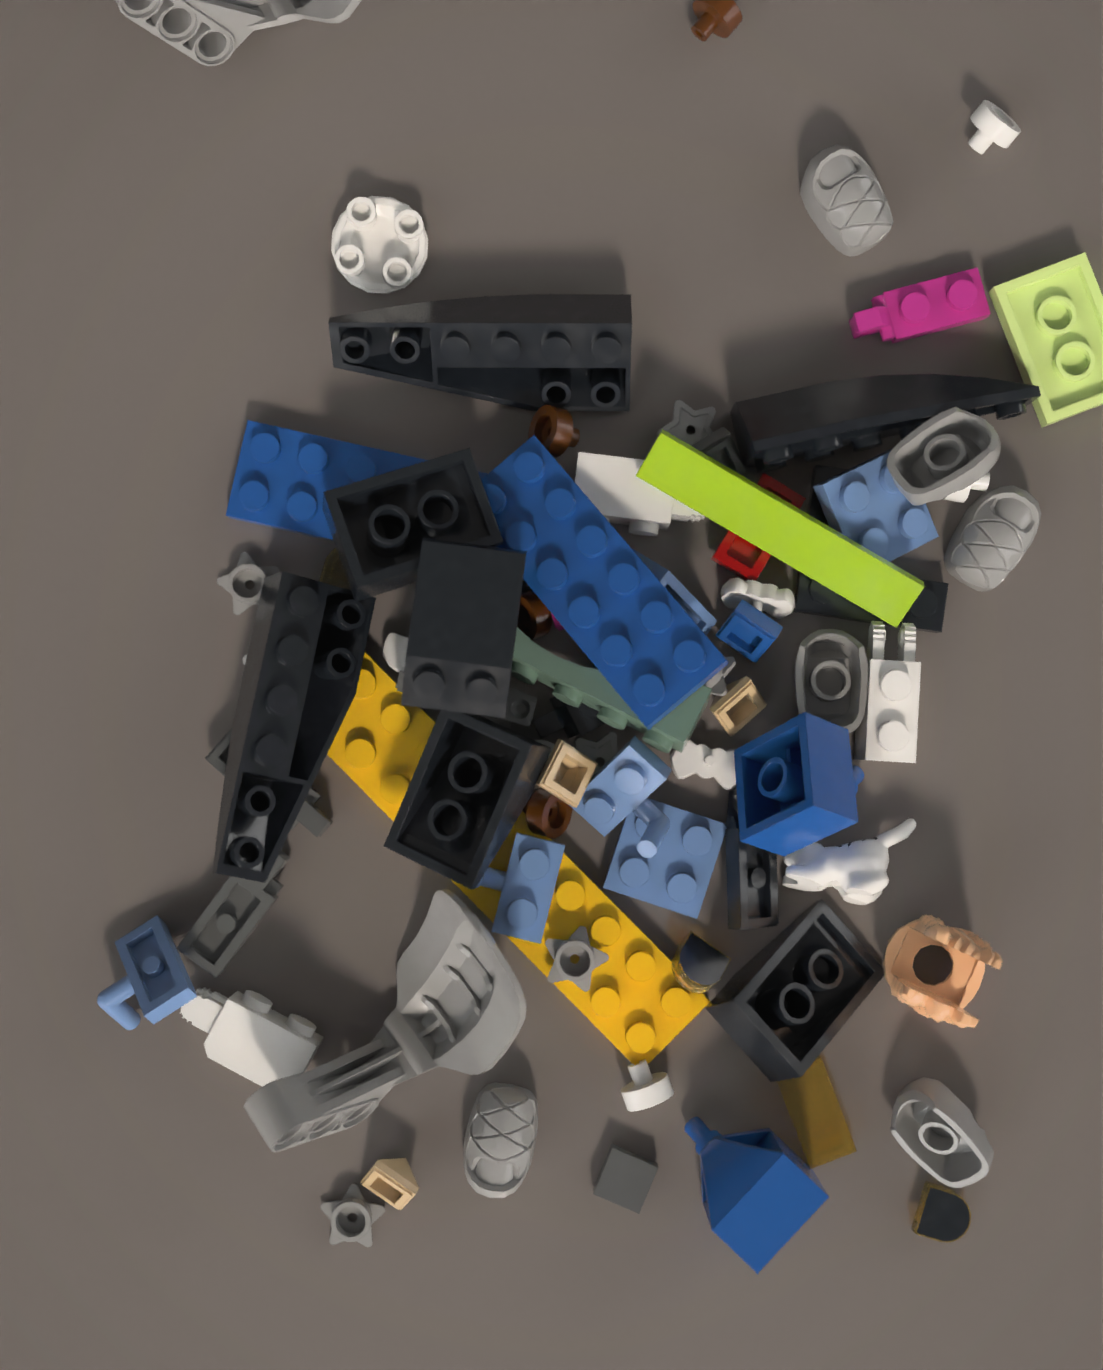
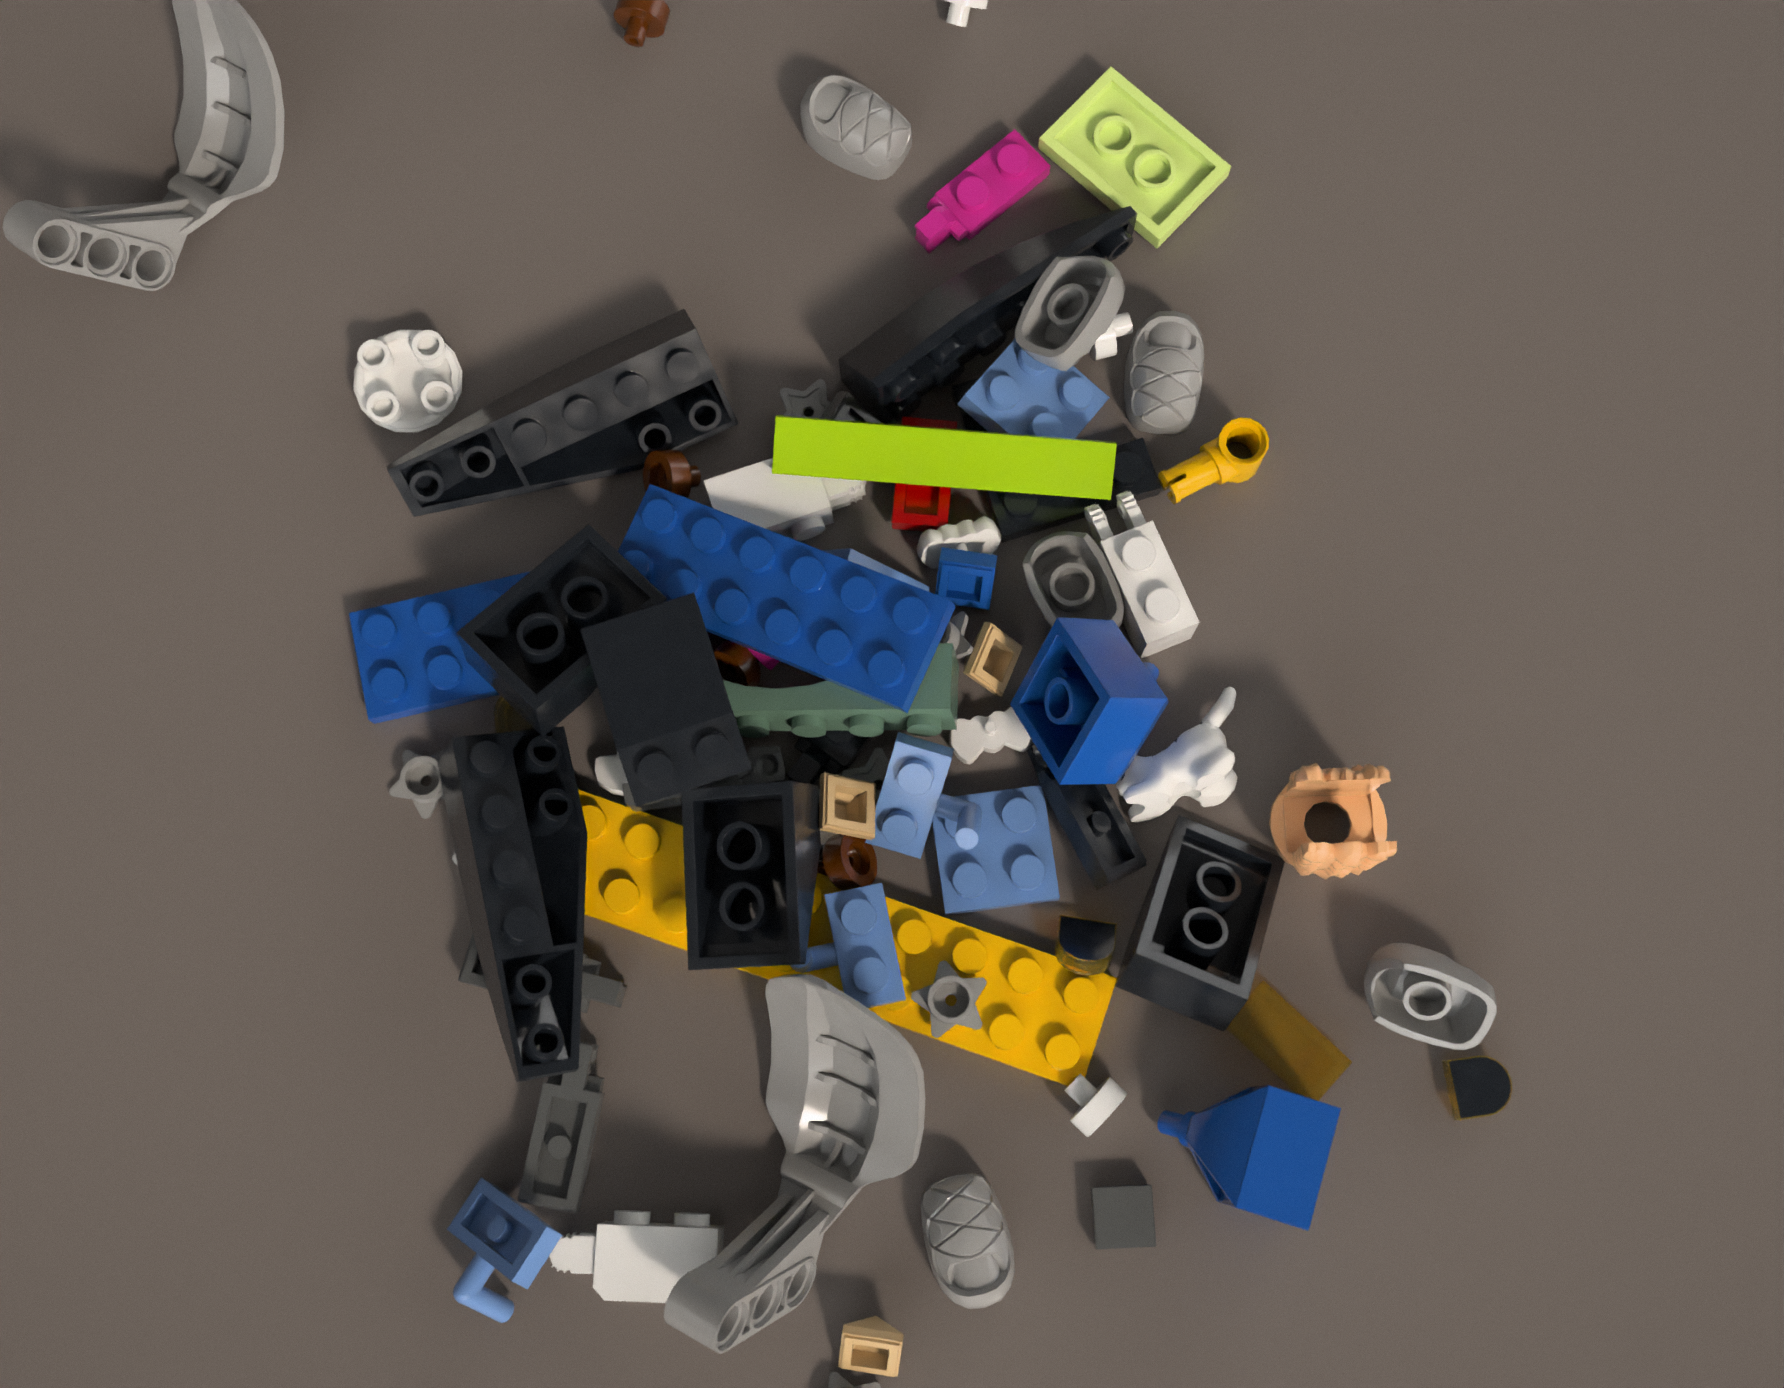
camera: 20 degrees left, 10 degrees down
(996, 633) = (1216, 463): none -> yellow pin

